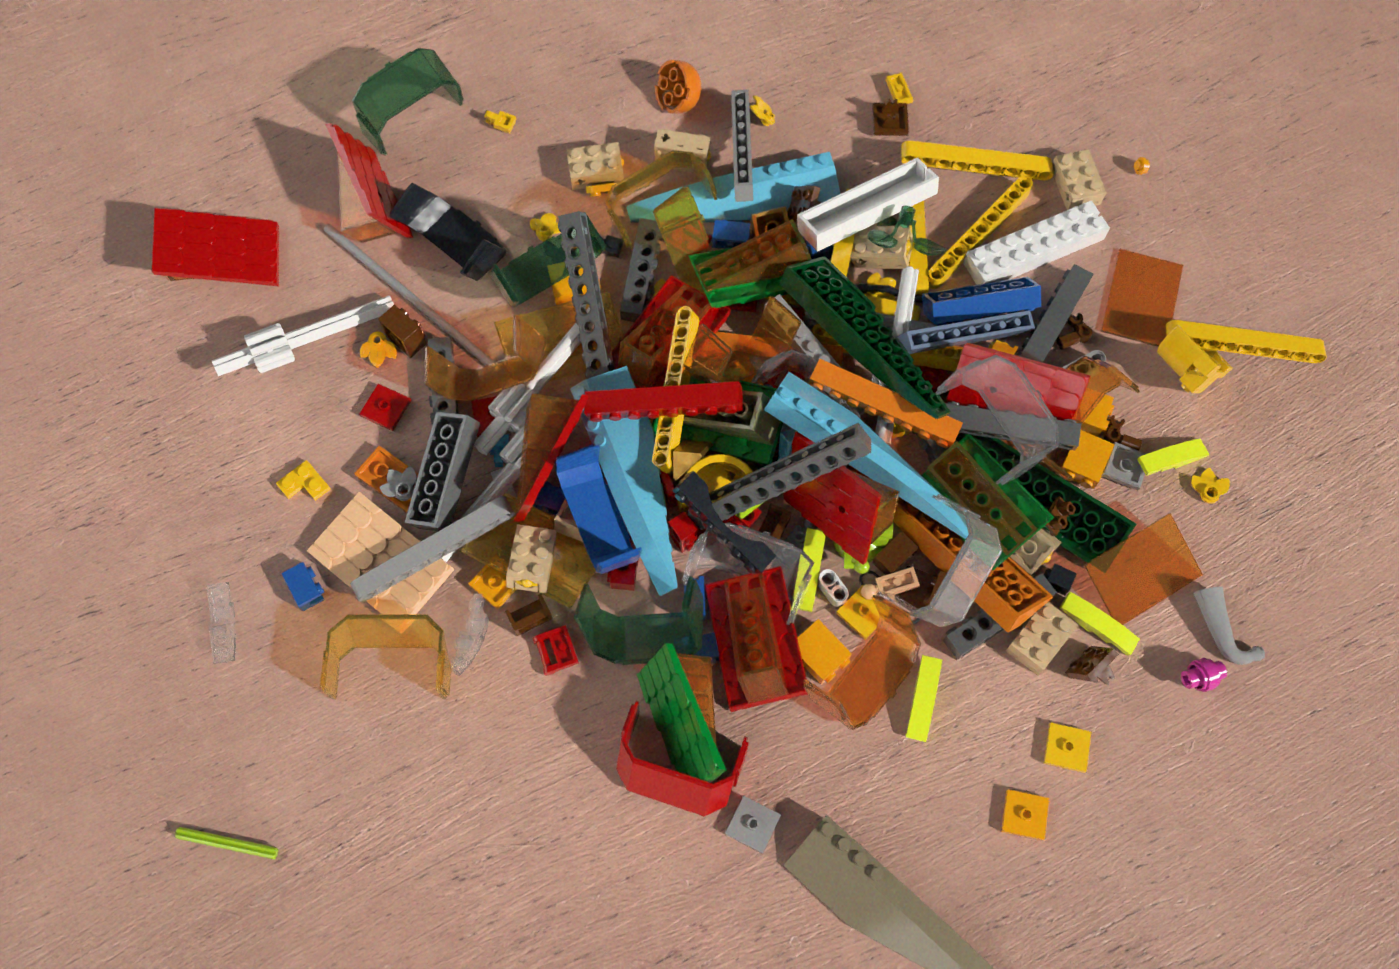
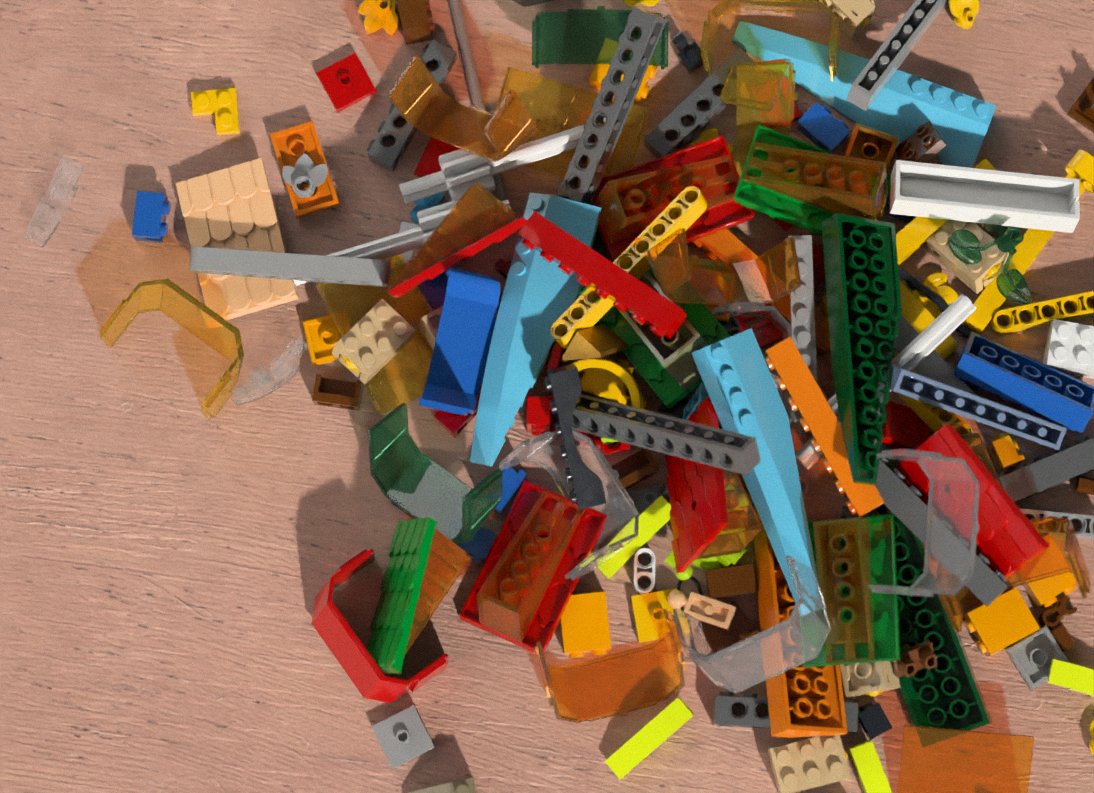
camera: 40 degrees right, 10 degrees up
(442, 471) = (349, 194): dark grey brick -> none
(562, 649) = (346, 447): red plate -> none

